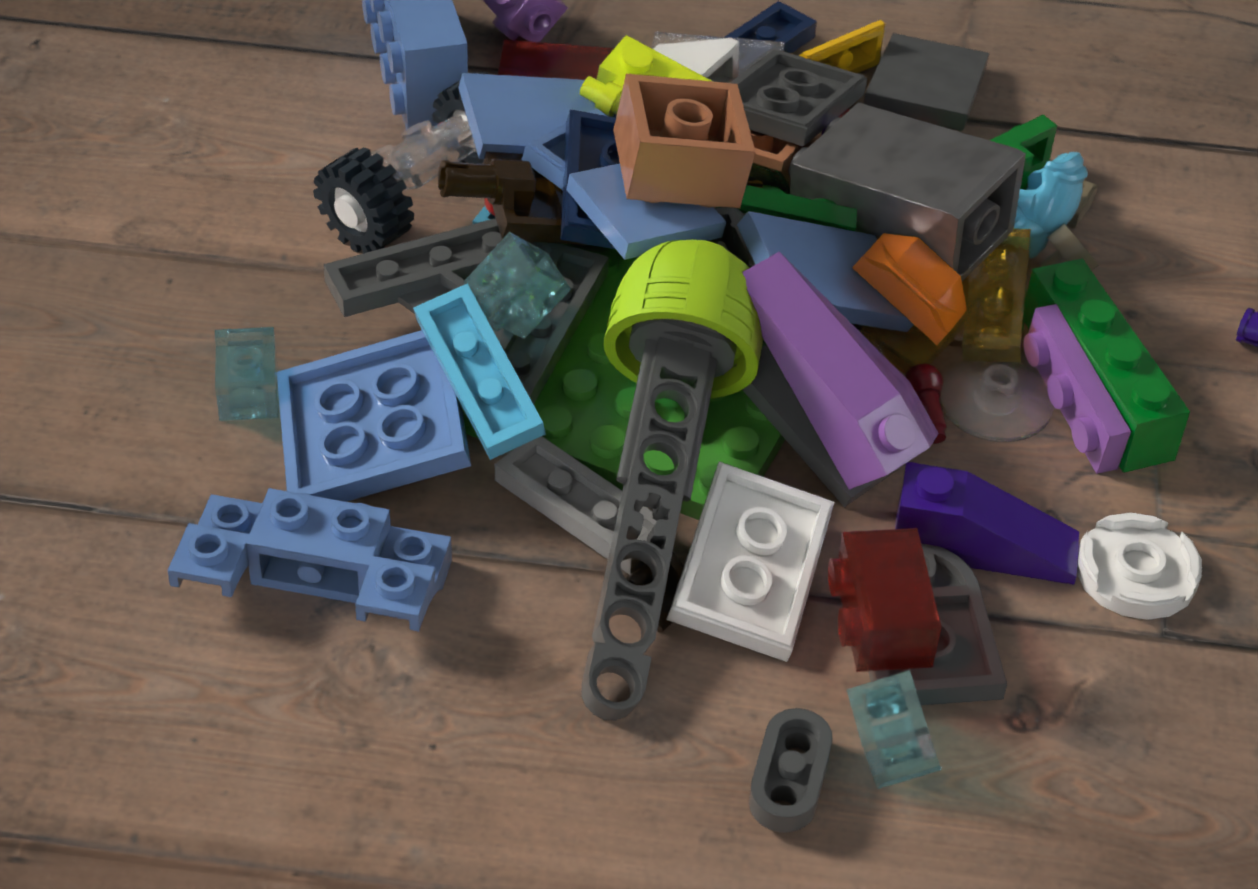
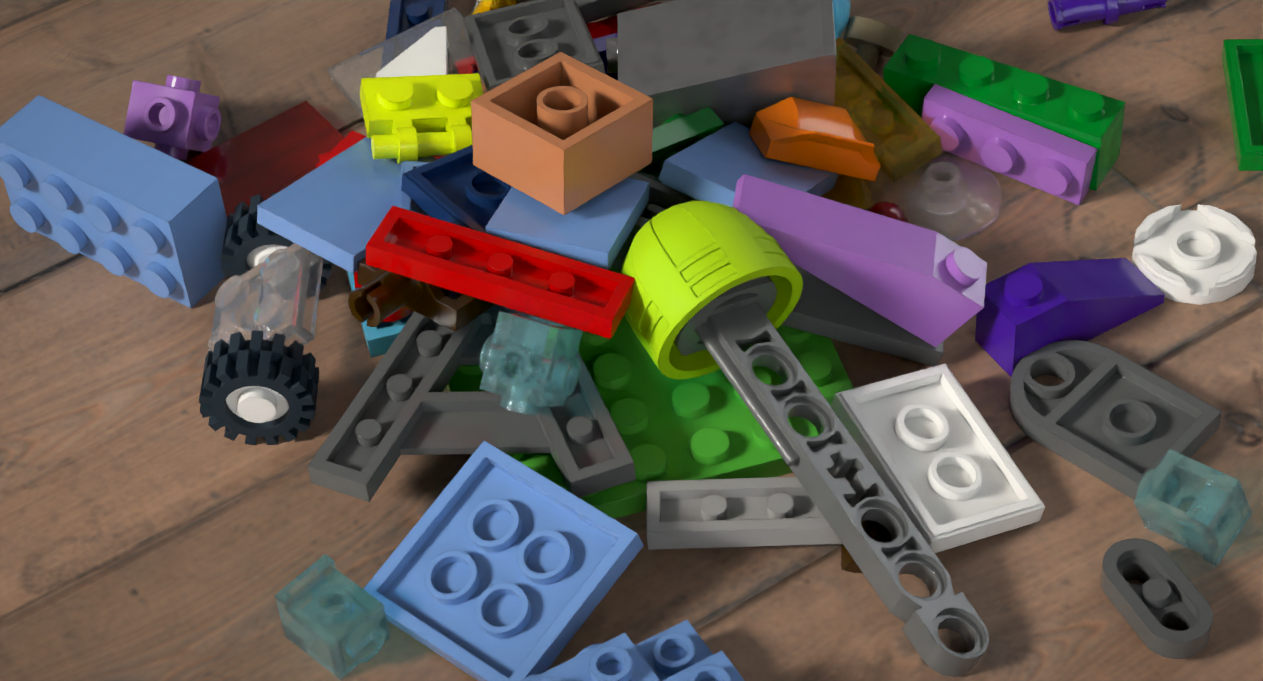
camera: 35 degrees left, 0 degrees up
(479, 371) = (577, 455): medium azure plate -> none
(546, 210) = (500, 271): none -> red plate
(885, 600) = (1083, 408): clear red brick -> none

